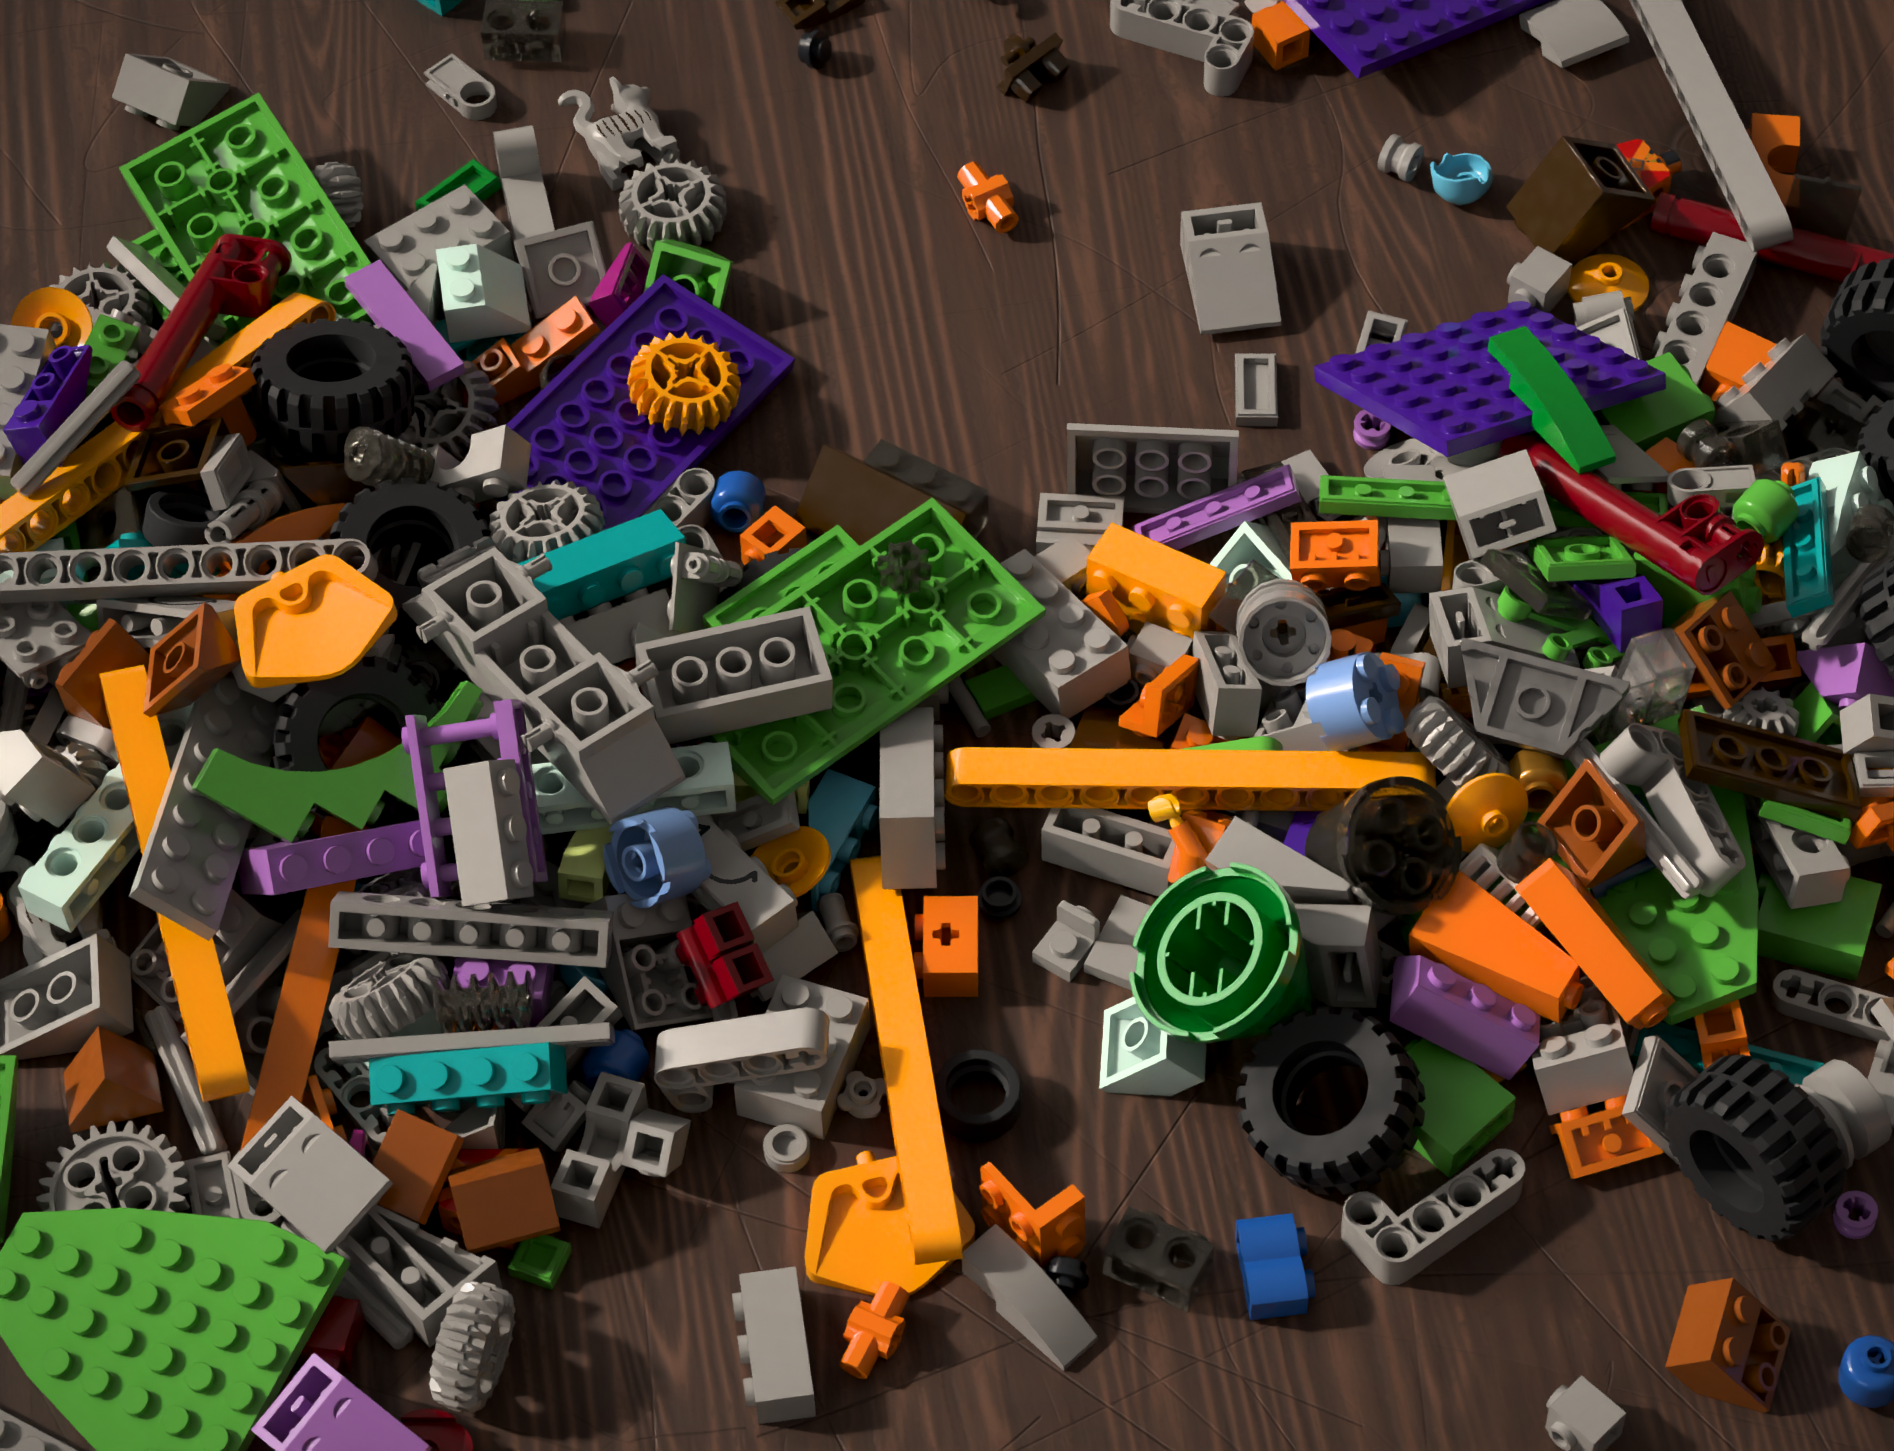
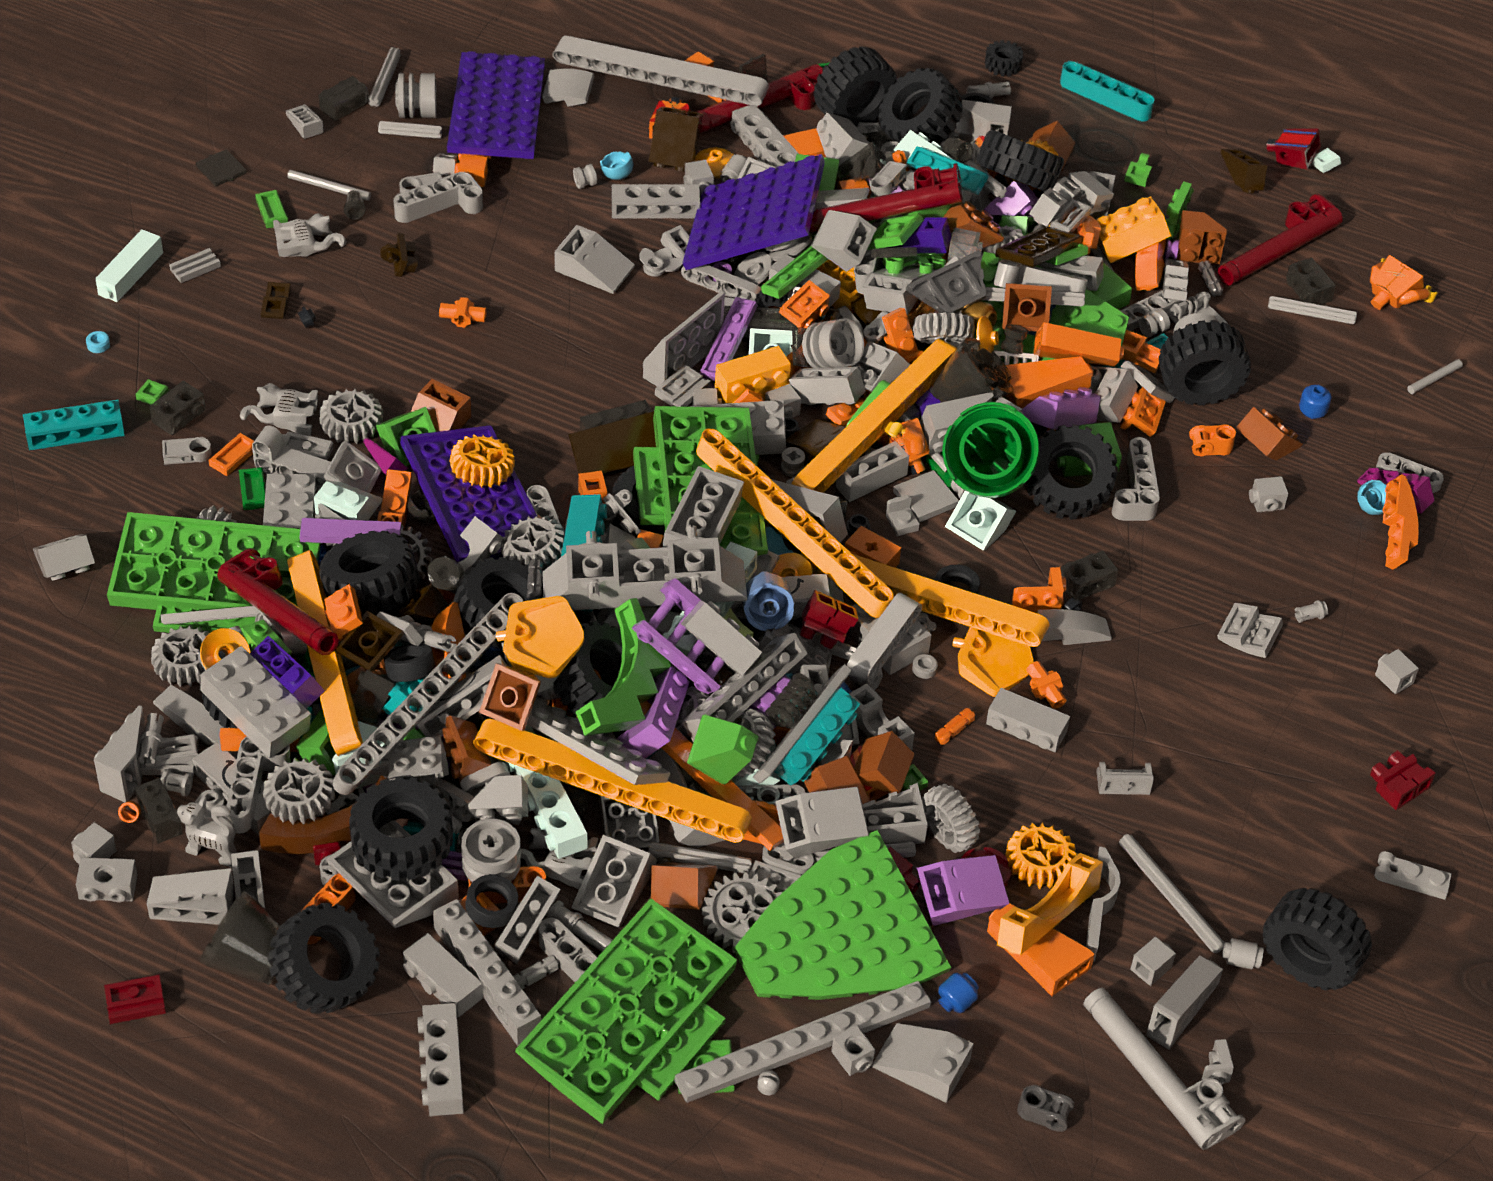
camera: 60 degrees left, 5 degrees down
(75, 428) = (322, 665): light grey axle -> none
(317, 964) = (721, 748): none -> bright green slope
(478, 134) = (232, 454): none -> orange tile
(570, 190) = (310, 445): none -> light grey hinge
(656, 1143) = (895, 701): light grey brick -> none
(693, 1255) = (954, 726): none -> orange axle
(737, 501) = (559, 487): blue head -> none
(765, 286) = (445, 405): none -> dark orange slope
(851, 776) = (796, 524): none -> light orange beam
(904, 567) = (690, 432): clear smoke gear -> none
(1163, 699) = (816, 410): orange bracket -> none
(1256, 389) = (661, 294): light grey tile -> none
(1273, 1267) = (1121, 543): blue brick -> none
(1316, 341) = (659, 262): none -> light grey plate
(1344, 435) = (699, 275): none -> light grey beam
(1355, 701) = (902, 336): medium blue brick -> none
(1432, 260) = (655, 200): none -> light grey brick
(1556, 404) = (821, 188): green slope -> none
(1628, 1263) = (1214, 440): none -> orange piece
(1766, 508) = (919, 160): bright green head -> none
(1829, 1036) = (1153, 323): none -> light grey wheel

